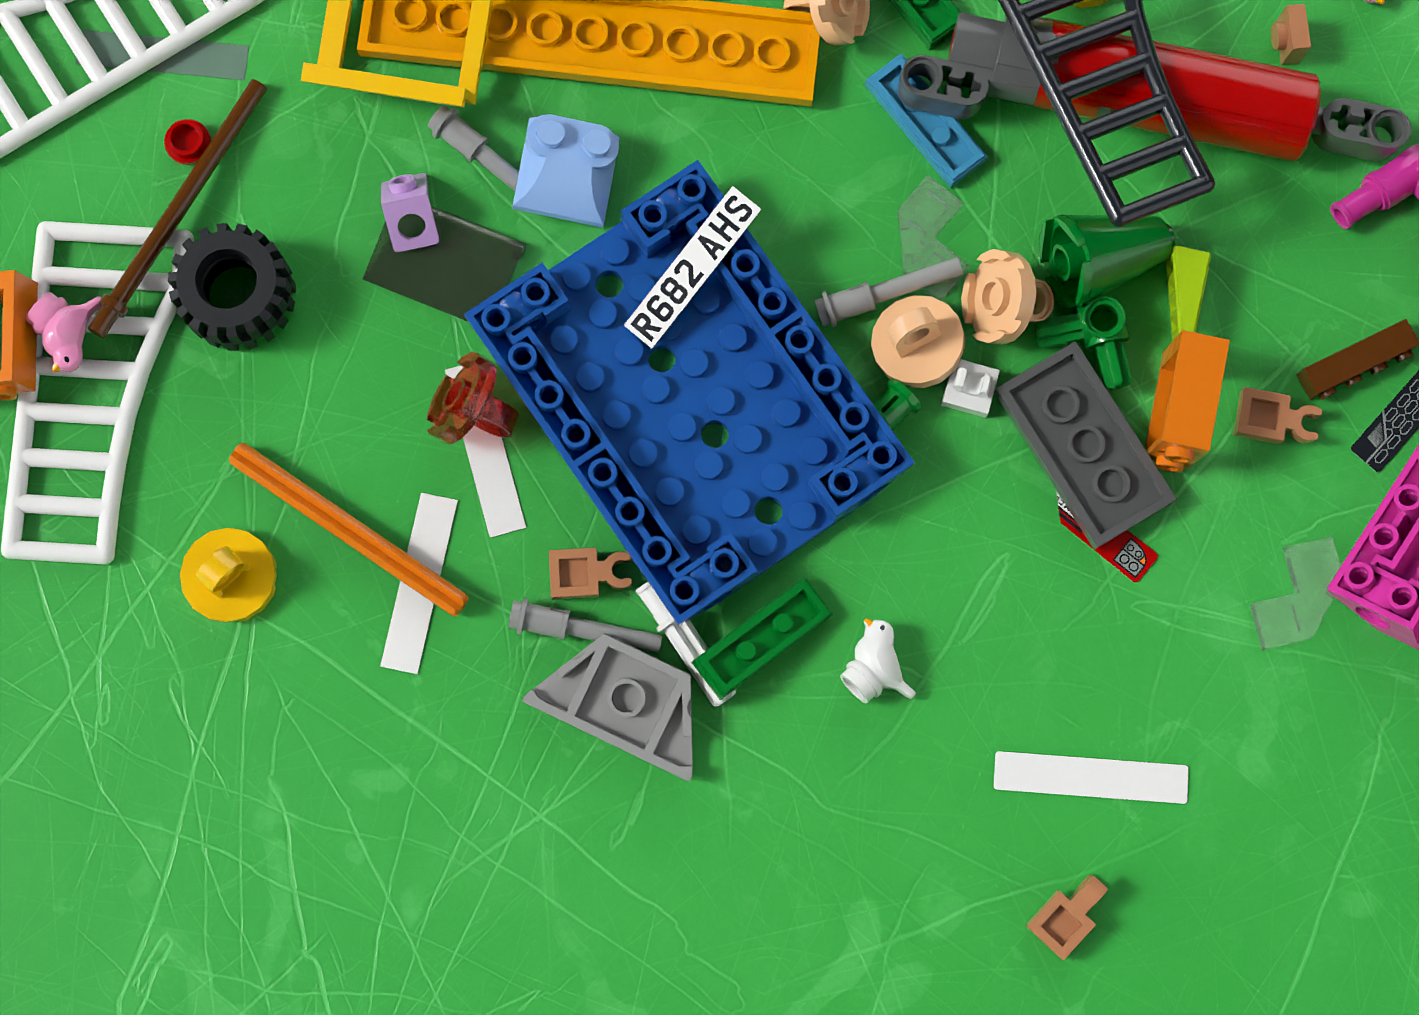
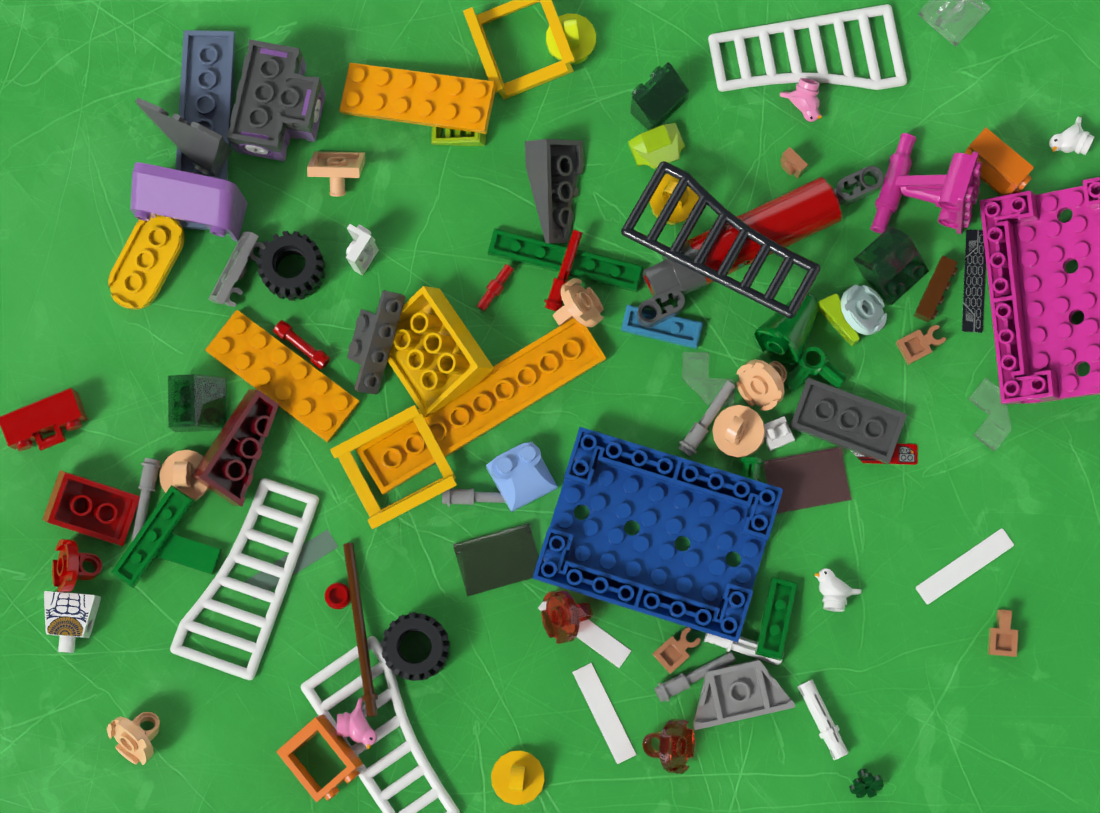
camera: 30 degrees left, 0 degrees up
(349, 529) = (554, 714): orange axle -> none
(406, 196) = (459, 544): lavender bracket -> none
(474, 699) = (675, 746): none -> clear red tile
(692, 267) = (616, 477): white sticker -> none
(702, 969) = (866, 784): none -> dark green plant
(715, 831) = (825, 724): none -> white pin
(963, 485) = (809, 479): none -> piece
(1186, 400) = (878, 368): orange window -> none
(1231, 304) = (863, 309): none -> light aqua plate
(1321, 277) = (891, 264): none -> clear green slope

